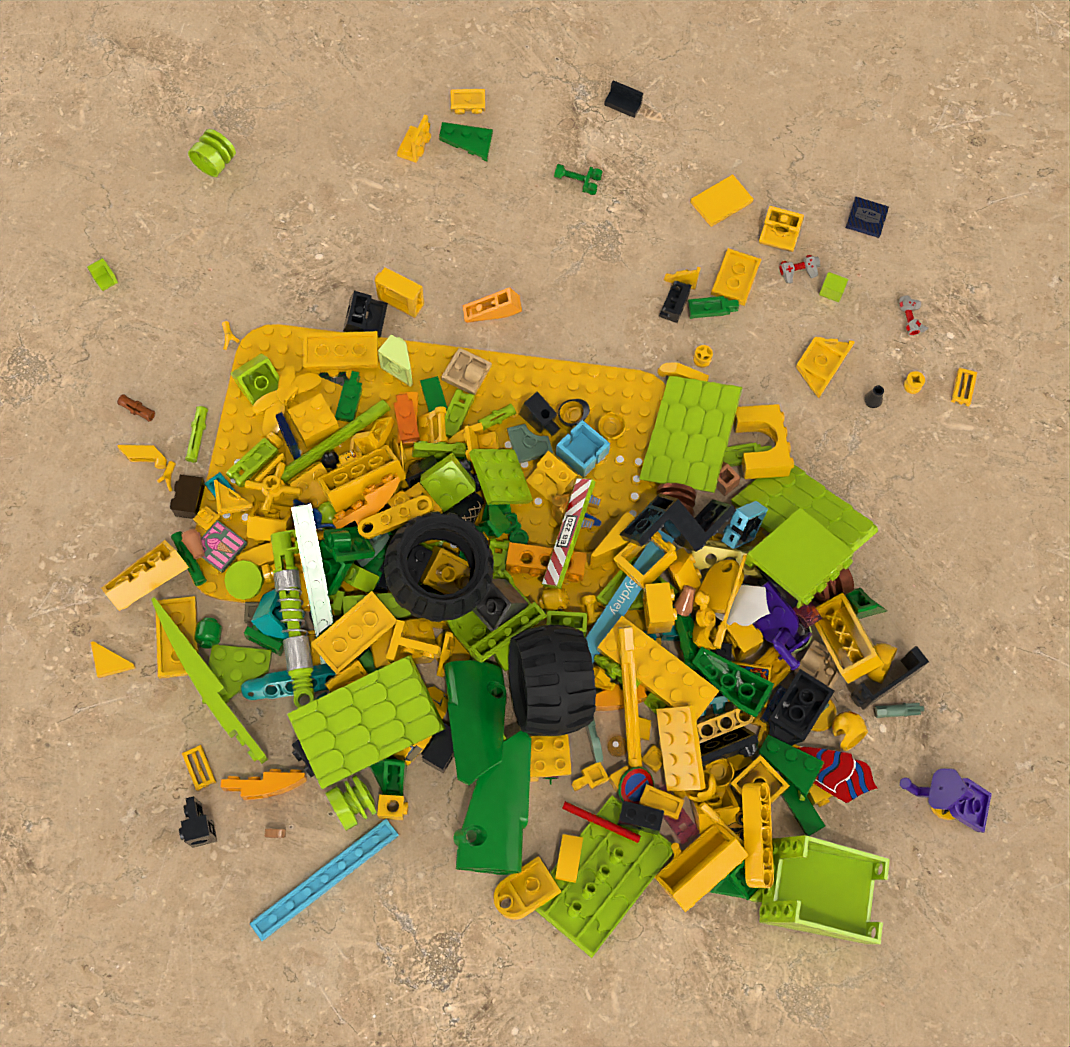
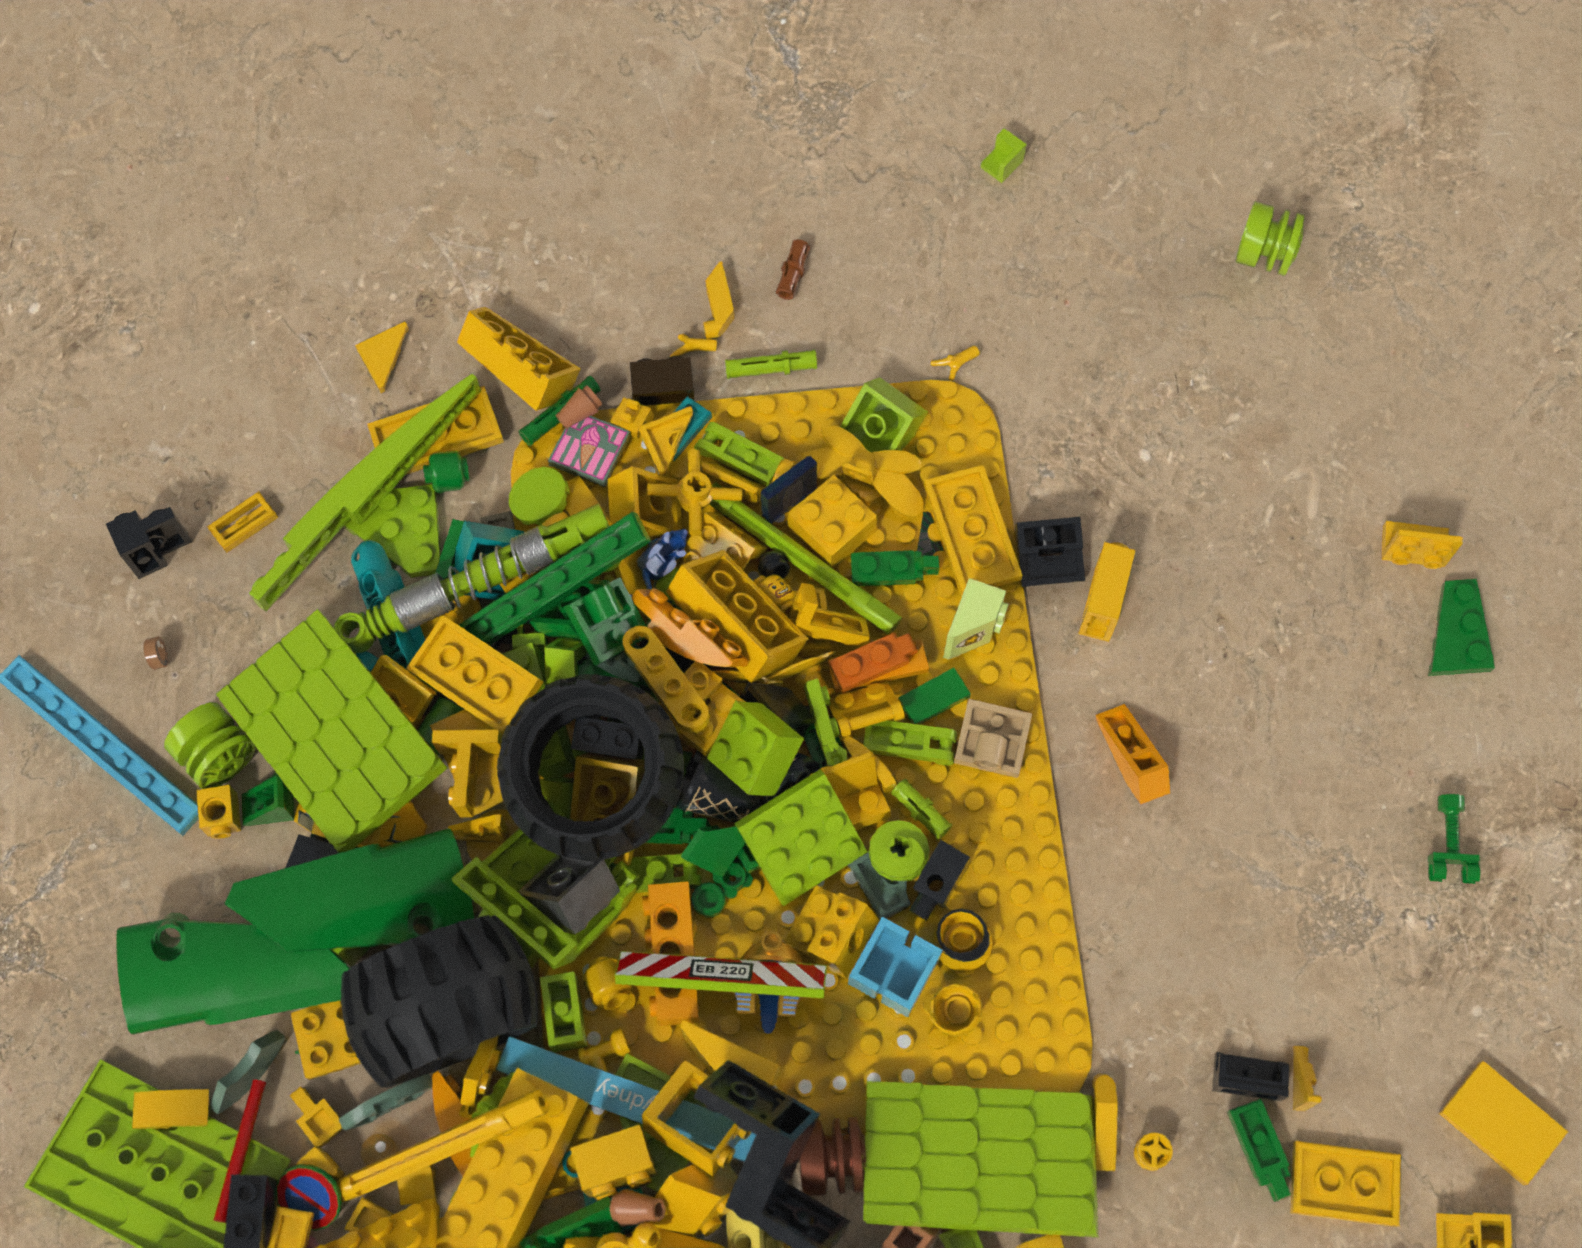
camera: 80 degrees right, 0 degrees up
(273, 784) = (224, 617): light orange slope -> none
(467, 100) = (1537, 610): yellow bracket -> none
(523, 438) = (907, 837): none -> lime piece
(526, 890) = (111, 1055): yellow tile -> none
(555, 812) = (252, 1066): none -> sand green tile

